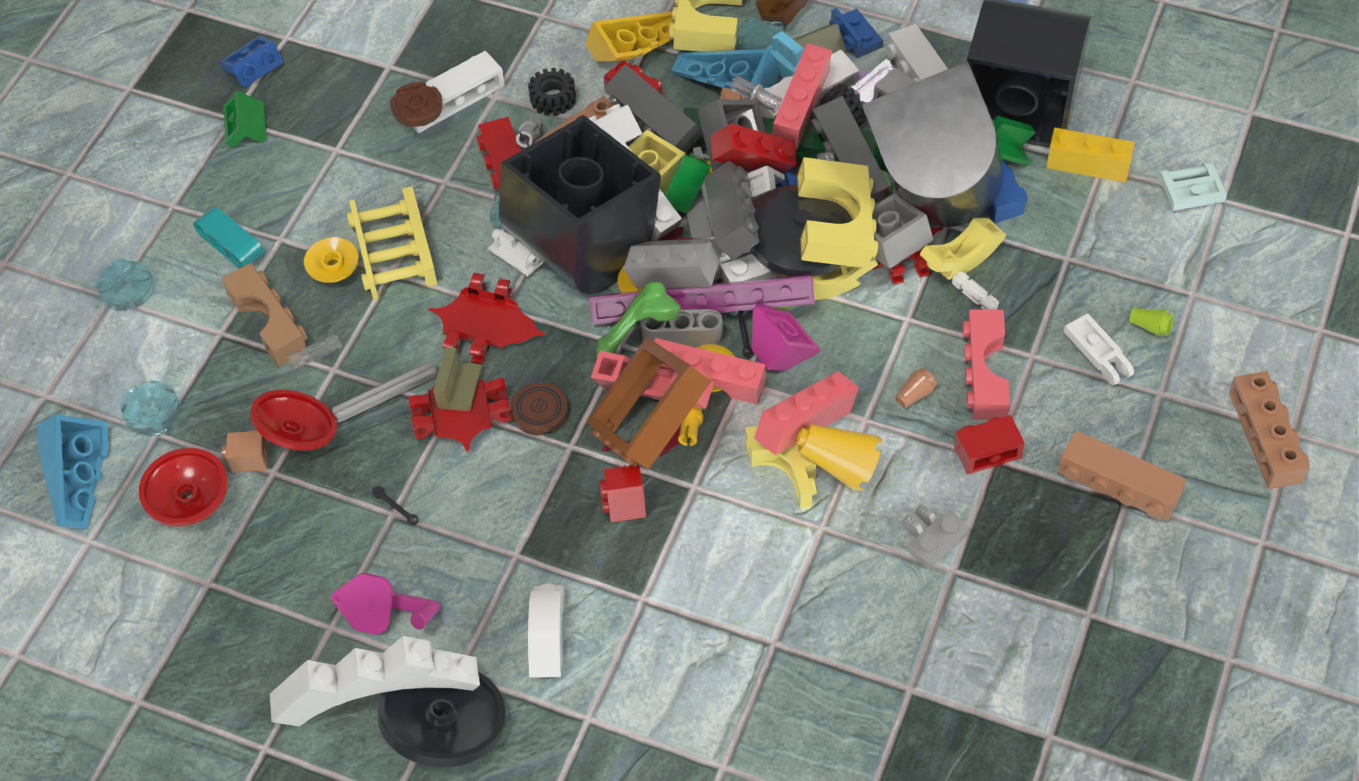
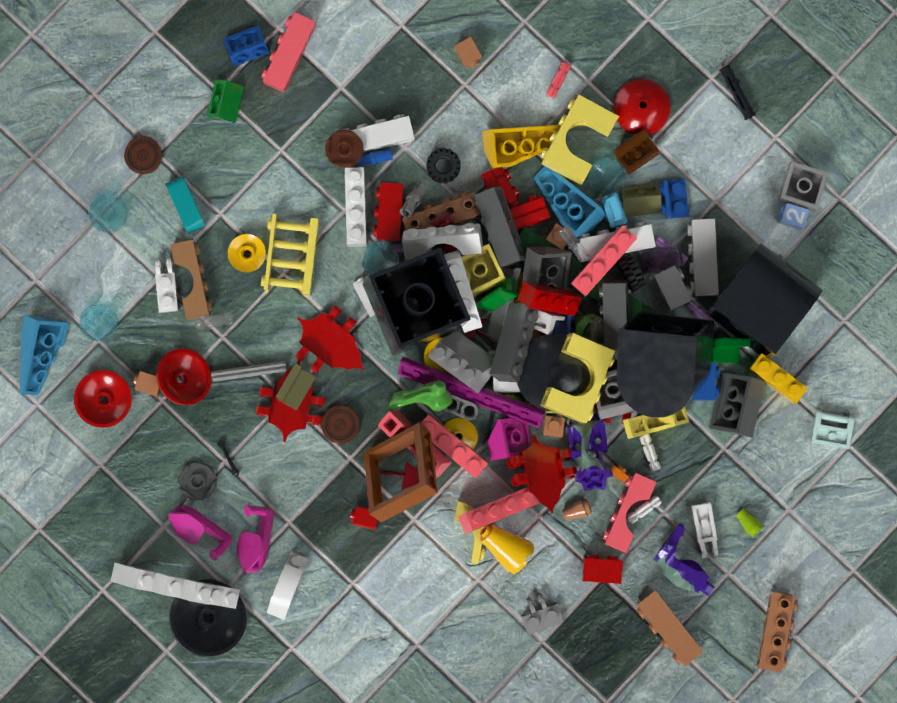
camera: 20 degrees right, 30 degrees up
(154, 209) = (143, 155): none -> copper tile
(234, 339) = (166, 288): none -> white hinge
(308, 48) = (289, 52): none -> coral brick
(360, 549) = (197, 481): none -> dark grey tile
(457, 165) = (355, 207): none -> white brick
(459, 112) = (375, 157): none -> blue pin
(476, 590) = (252, 547): none -> dark pink piece
(689, 93) = (529, 213): none -> red brick
(832, 303) = (553, 426): none -> nougat brick
(846, 352) = (543, 471): none -> red animal
(894, 298) = (590, 467): none -> dark purple hips
(947, 326) = (619, 473): none -> orange plate
(1006, 354) = (644, 509): none -> white axle
(1057, 199) = (737, 404): none -> dark grey slope
(1107, 395) = (682, 573): none -> dark purple hips

